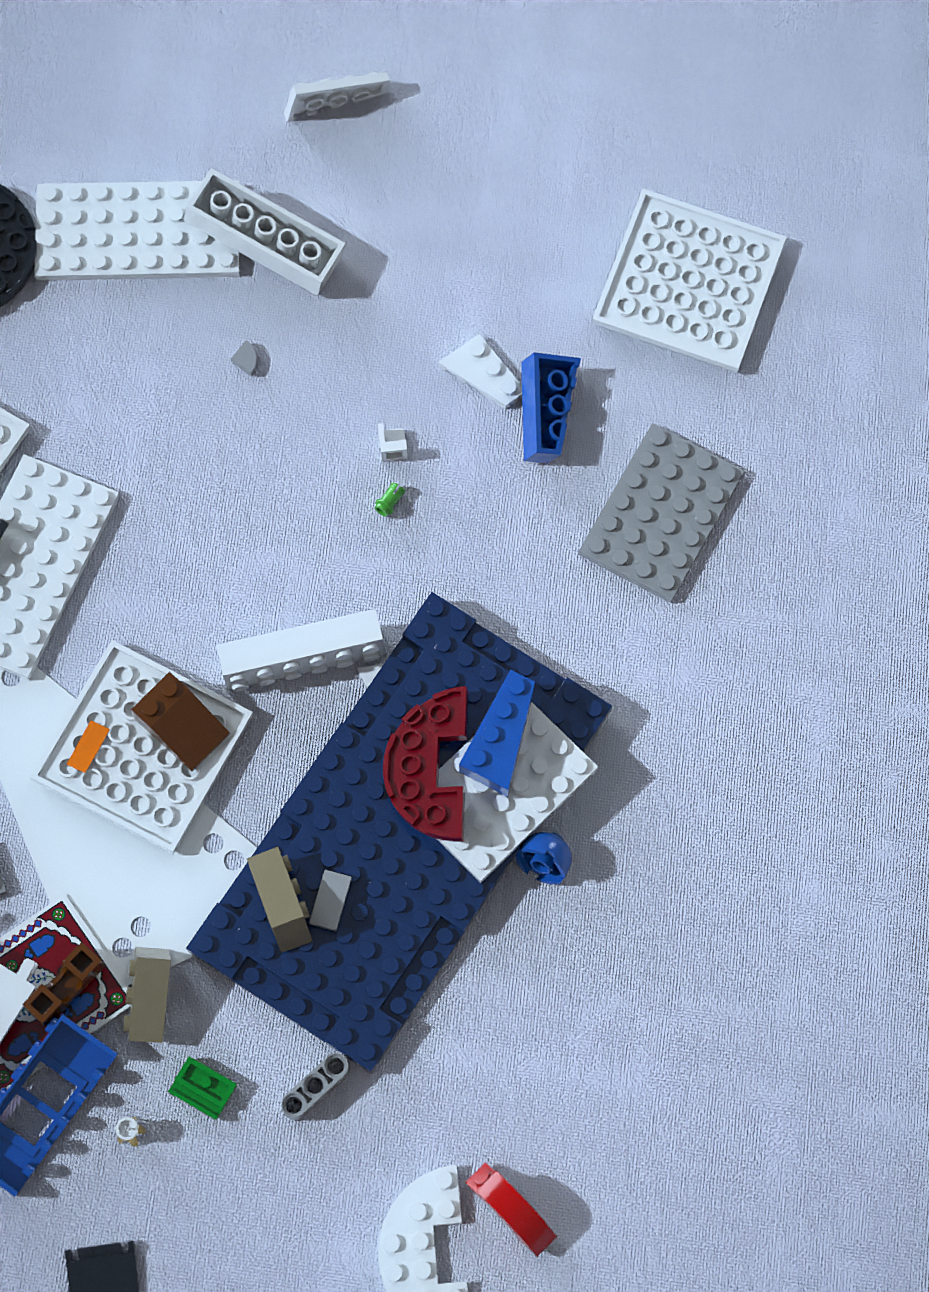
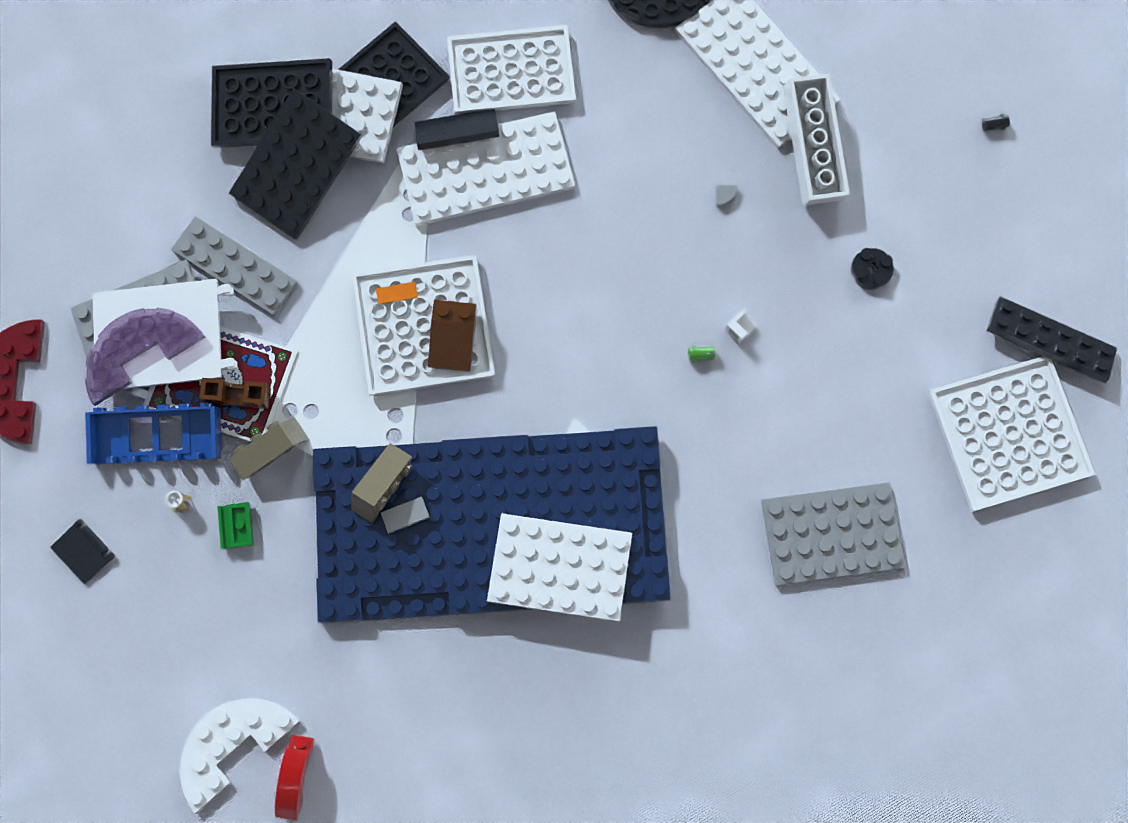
camera: 55 degrees right, 5 degrees up
(301, 650) = (556, 374): white brick -> none
(311, 96) = (949, 110): white wing -> none
(321, 1073) = (275, 590): light grey beam -> none
(381, 60) = (998, 122): none -> black pin
(413, 766) = (528, 502): dark red plate -> none
(428, 267) = (878, 278): none -> black plate
(484, 370) = (837, 348): white wing -> none
(497, 742) = (588, 542): blue wedge -> none
(545, 403) = (846, 403): blue wedge -> none
(546, 856) = (539, 630): blue cylinder -> none
(629, 176) = (1052, 339): none -> black plate

